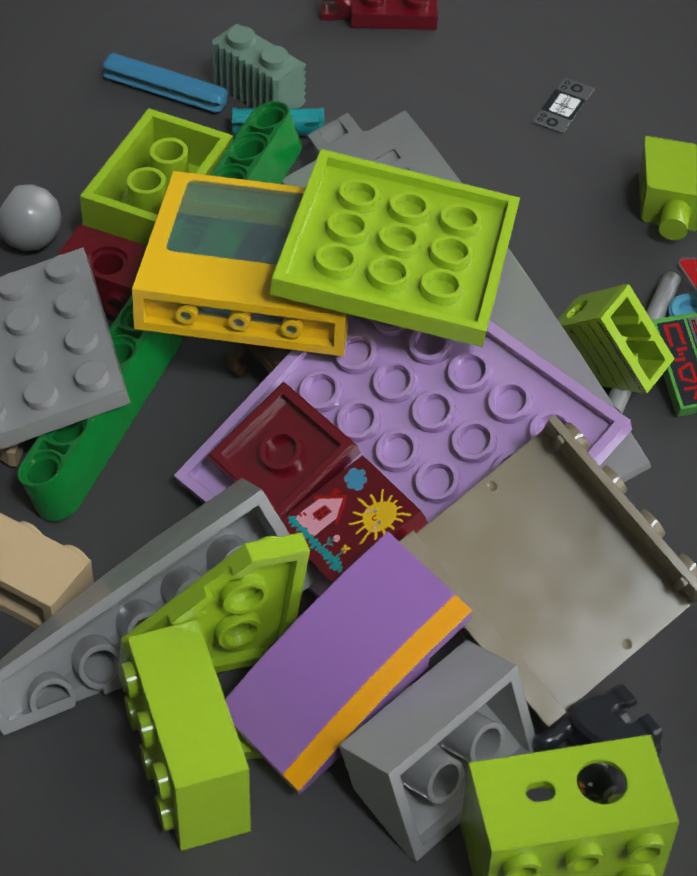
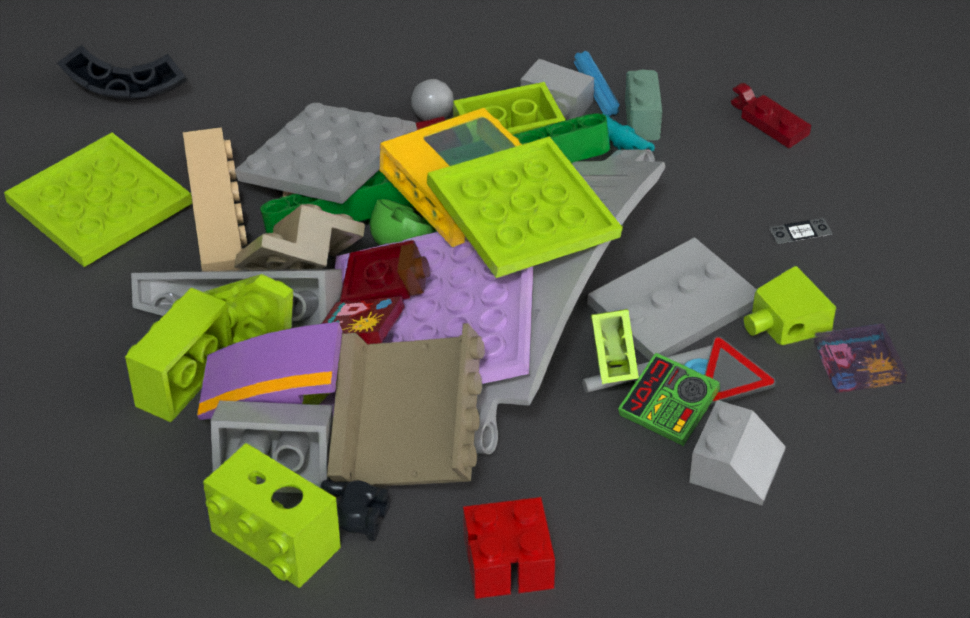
camera: 50 degrees right, 5 degrees down
(122, 105) = (569, 88): none -> light grey brick
(147, 485) = (301, 241): none -> dark tan bracket
(212, 385) = (396, 222): none -> bright green cylinder
(343, 410) = (413, 269): none -> reddish brown plate
(572, 238) = (676, 298): none -> light grey plate

